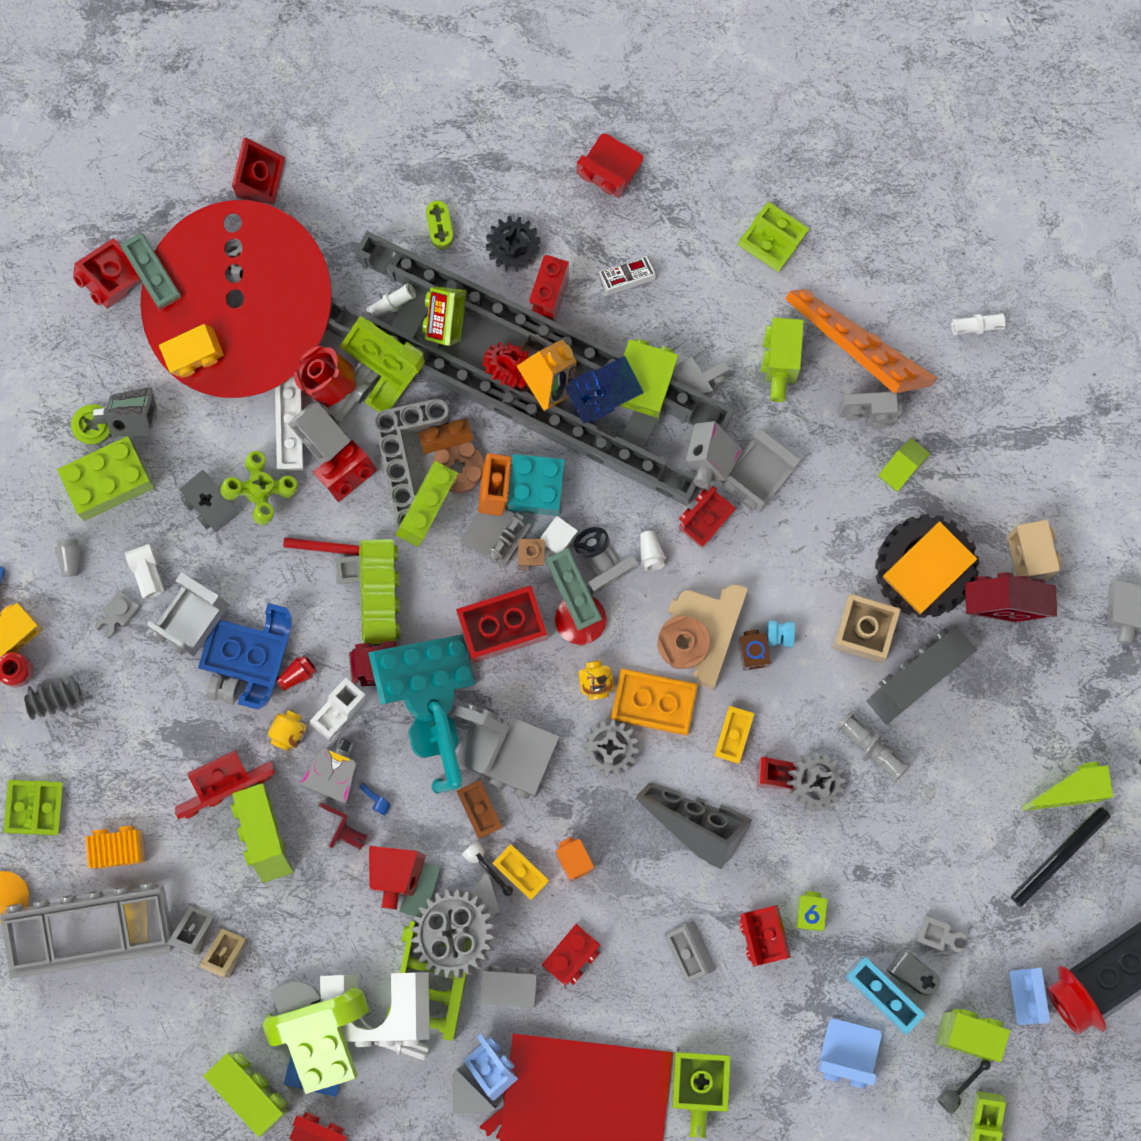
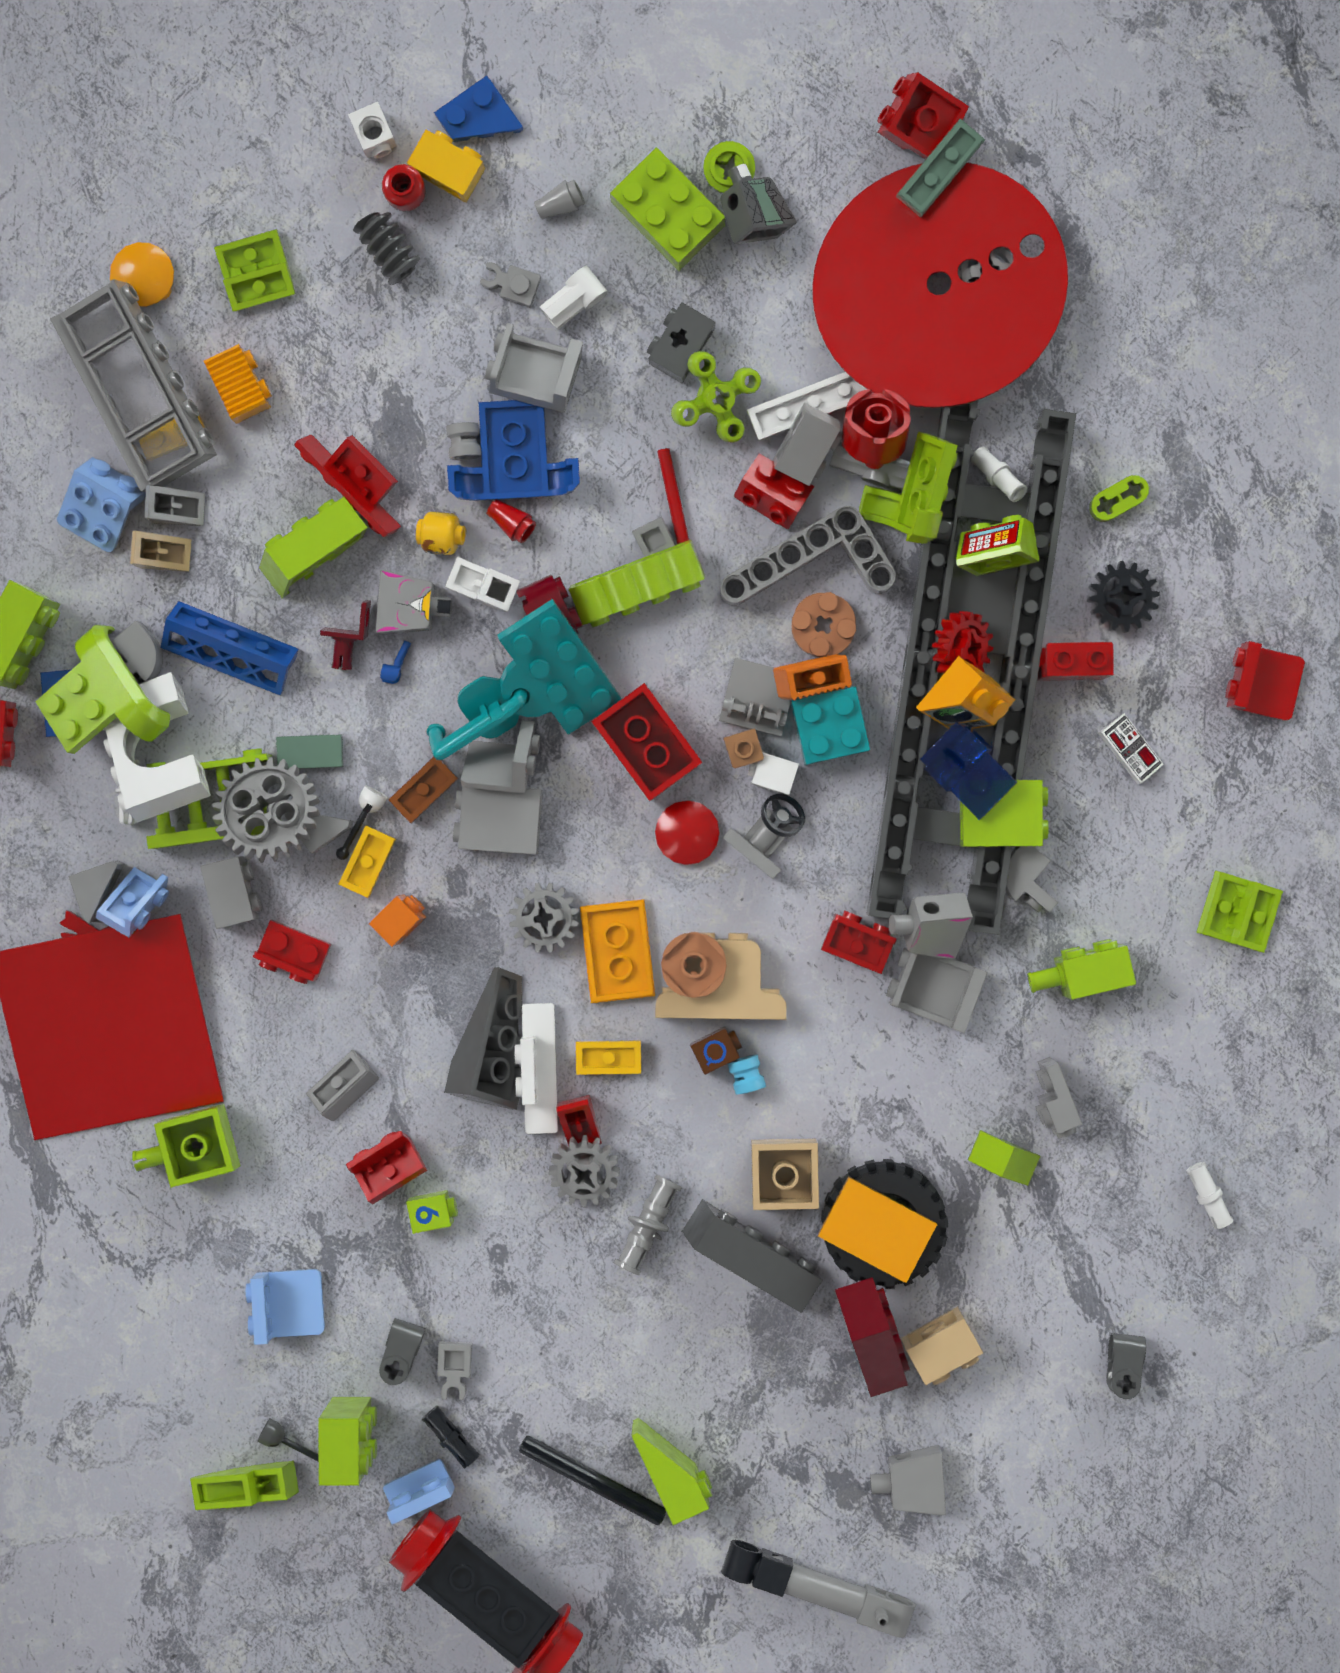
camera: 70 degrees right, 10 degrees up
(168, 991) = (99, 503): none -> light blue bracket
(191, 350) = (857, 254): yellow brick -> none
(257, 172) = (1110, 252): red slope -> none
(313, 923) = (228, 641): none -> blue fence
(394, 873) = (315, 716): red torso -> none
(426, 504) = (759, 604): lime brick -> none
(445, 436) = (855, 597): dark orange plate -> none
(573, 589) = (716, 812): sand green tile -> none
(596, 680) = (618, 875): yellow head -> none
(651, 552) = (795, 890): white cone -> none
(725, 791) = (538, 1068): none -> white bracket
(868, 349) = (1123, 1087): orange wing -> none
(884, 995) = (362, 1325): medium azure brick -> none
(994, 957) = (450, 1437): none -> black pin
(1084, 424) = (1125, 1358): none -> dark grey piece

